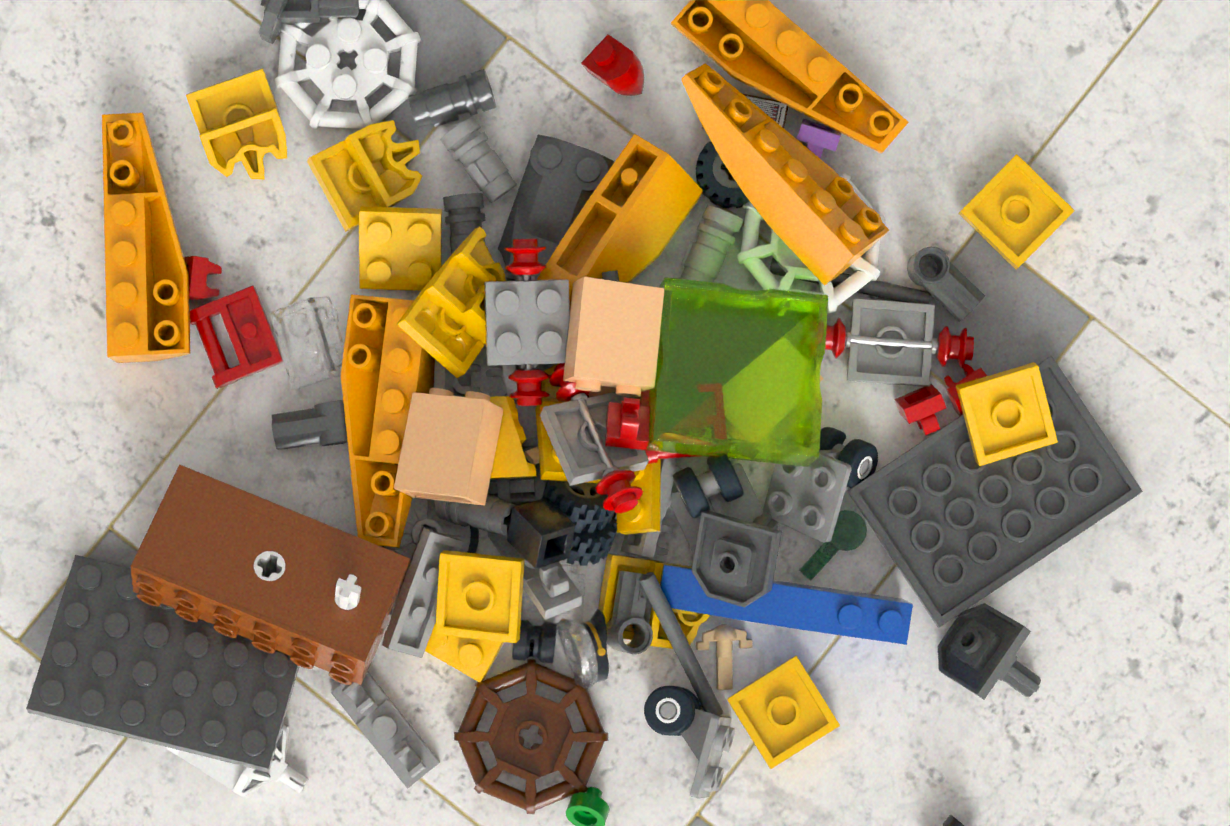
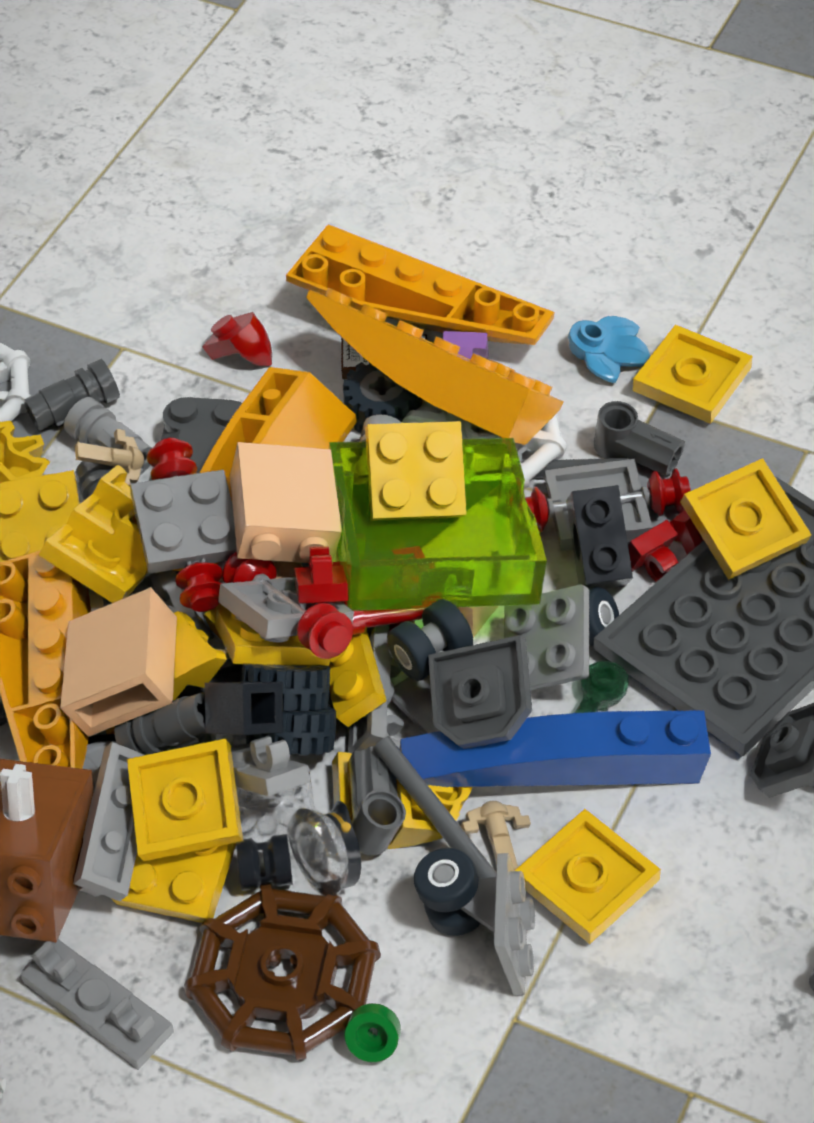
camera: 10 degrees left, 35 degrees down
(492, 203) = (130, 458): none -> tan piece
(733, 319) = (415, 470): none -> yellow plate
(877, 399) = (599, 537): none -> black brick
(957, 159) = (608, 345): none -> dark azure plate

